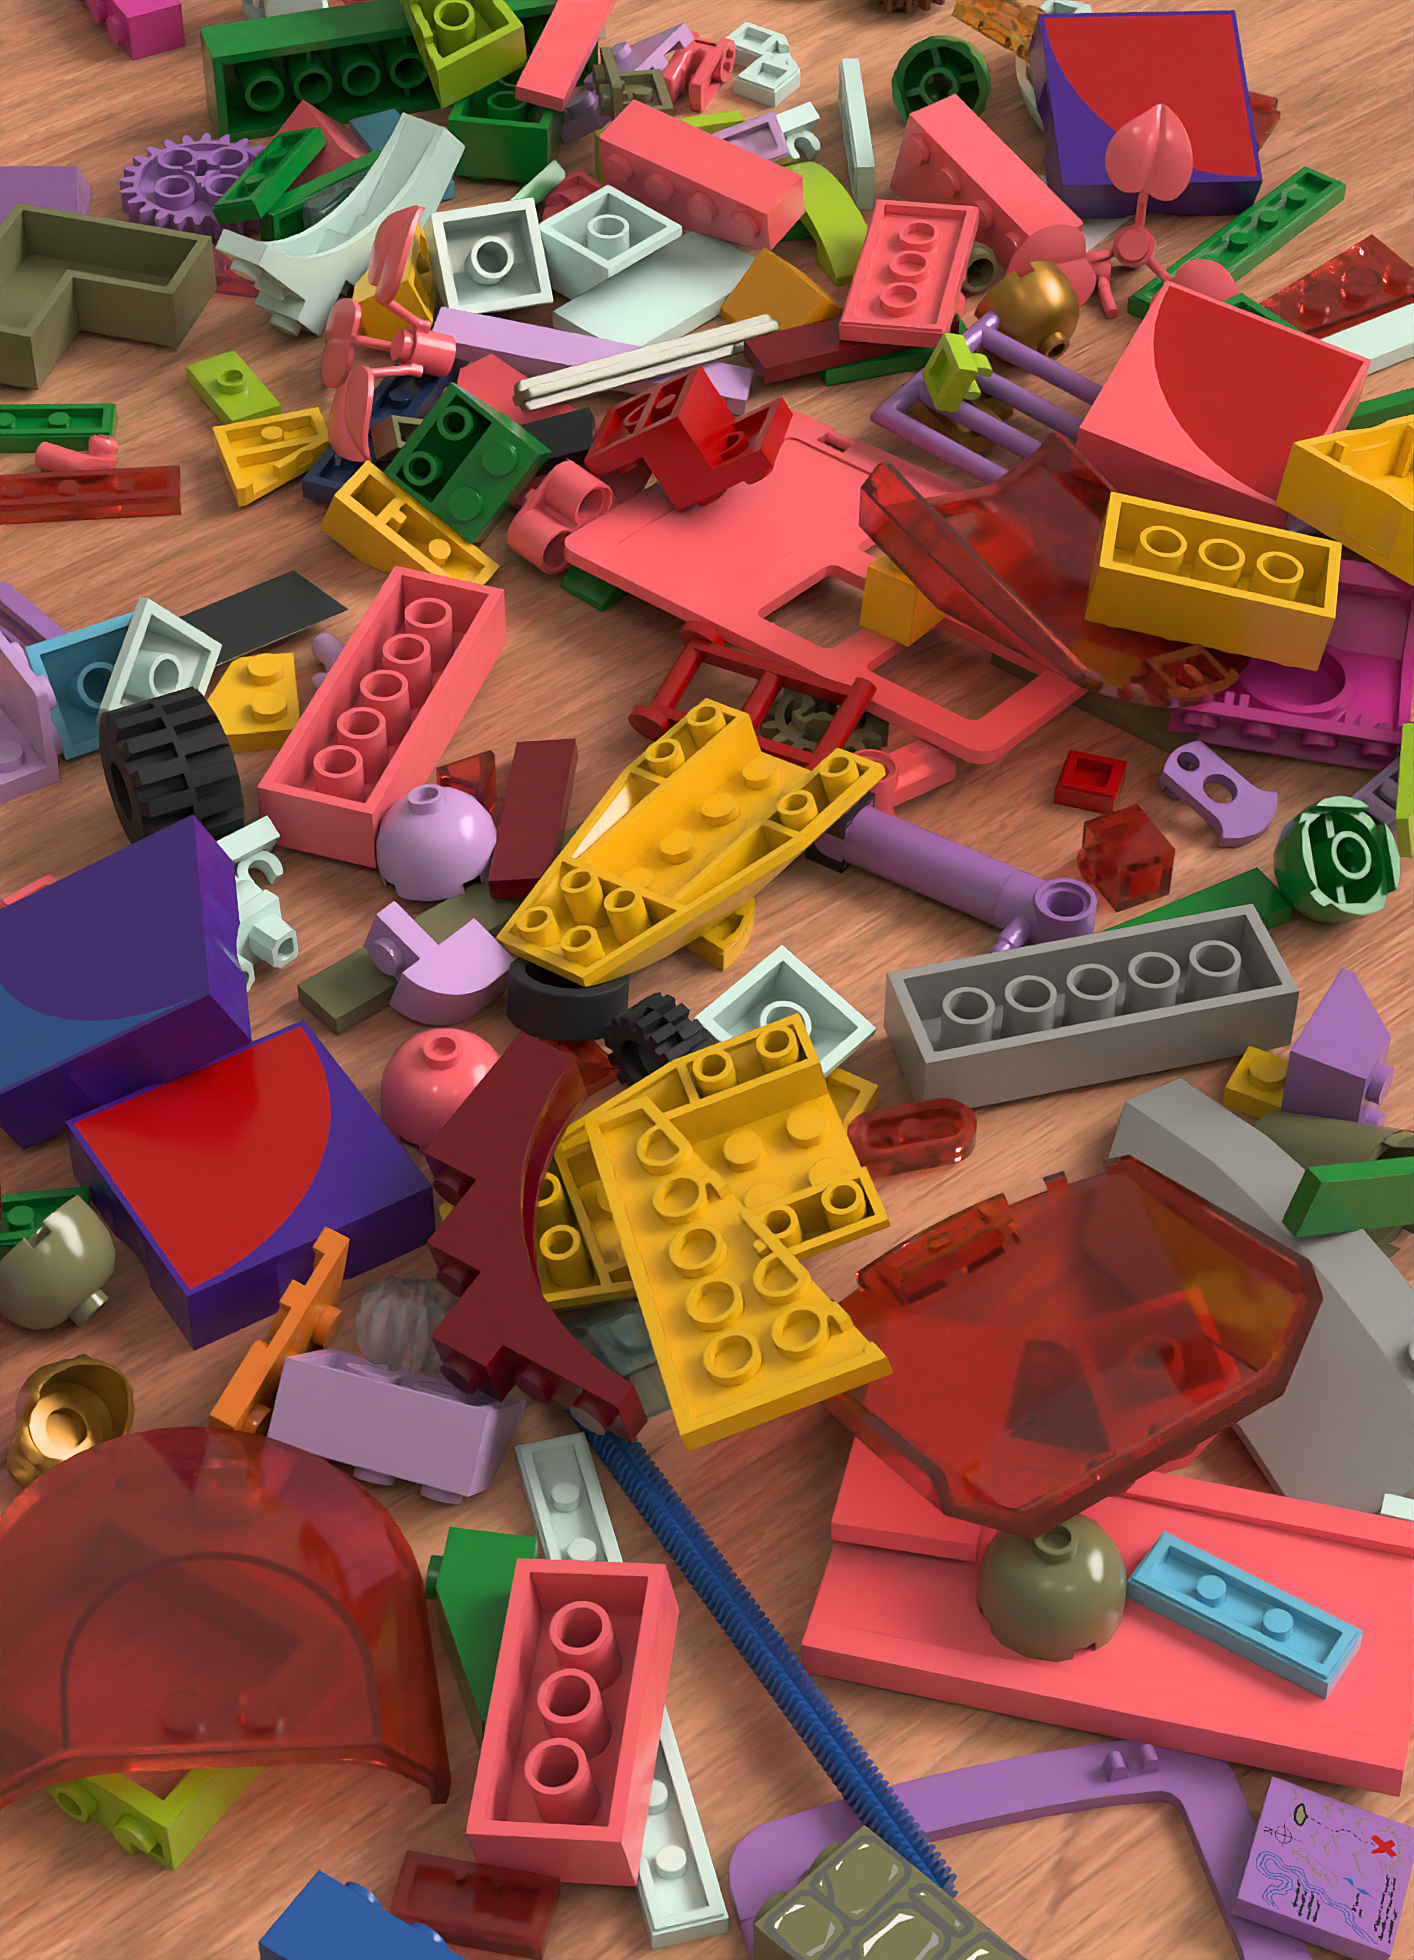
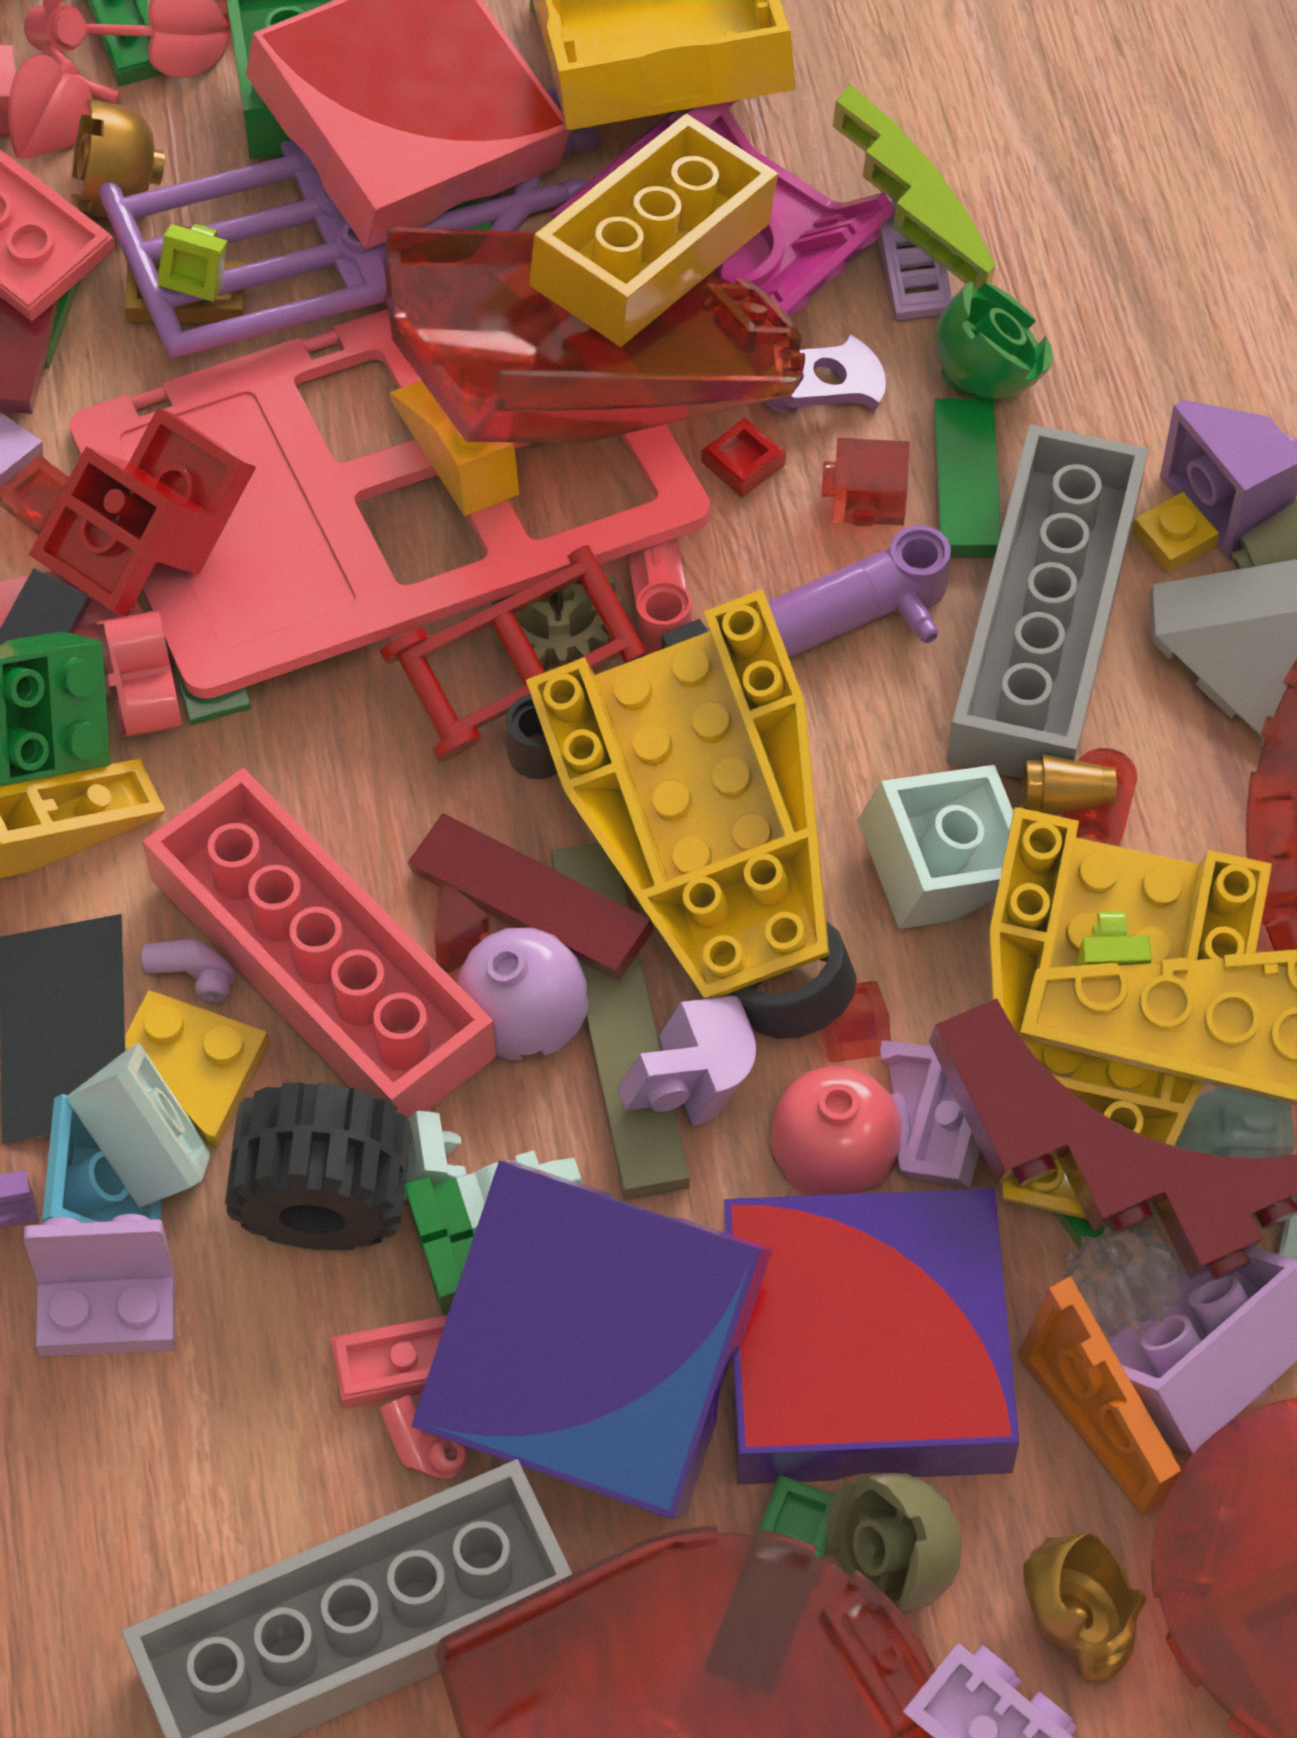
camera: 60 degrees left, 15 degrees up
(651, 1037) = (922, 940): black tyre -> none
(723, 1148) = (1111, 943): none -> lime tile
(894, 1084) = (1066, 785): none -> pearl gold cone

